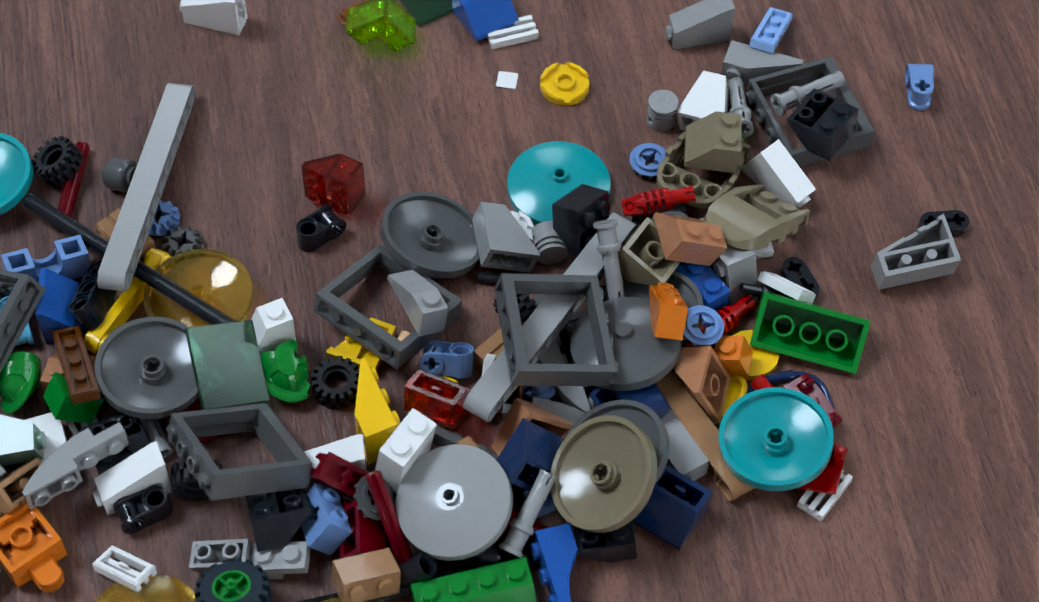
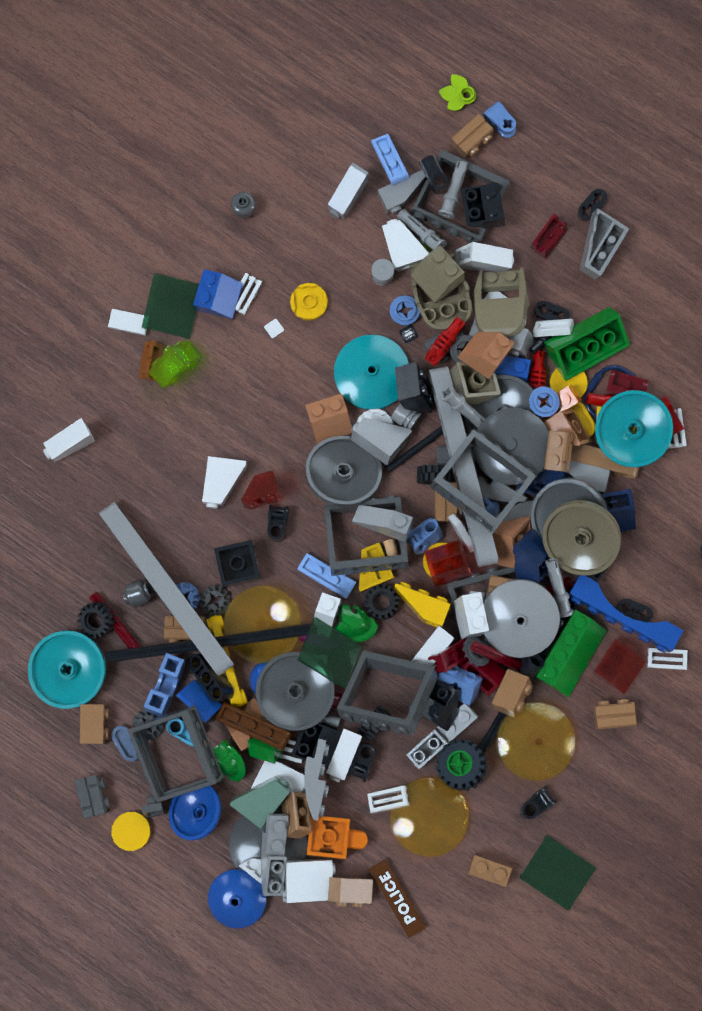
camera: 40 degrees left, 25 degrees up
(239, 225) = (237, 564): none -> black brick
(305, 144) = (221, 479): none -> white slope
(313, 327) = (322, 574): none -> light blue tile
(473, 180) = (329, 418): none -> nougat slope
(632, 185) = (408, 334): none -> black sticker
(667, 311) = (523, 413): orange slope -> none
(667, 376) = (558, 451): none -> medium nougat brick
(801, 64) = (433, 173): none -> black piece
(867, 212) = (549, 236): none -> dark red hinge
(875, 74) = (472, 136): none -> medium nougat brick
(900, 37) = (455, 92): none -> lime plate

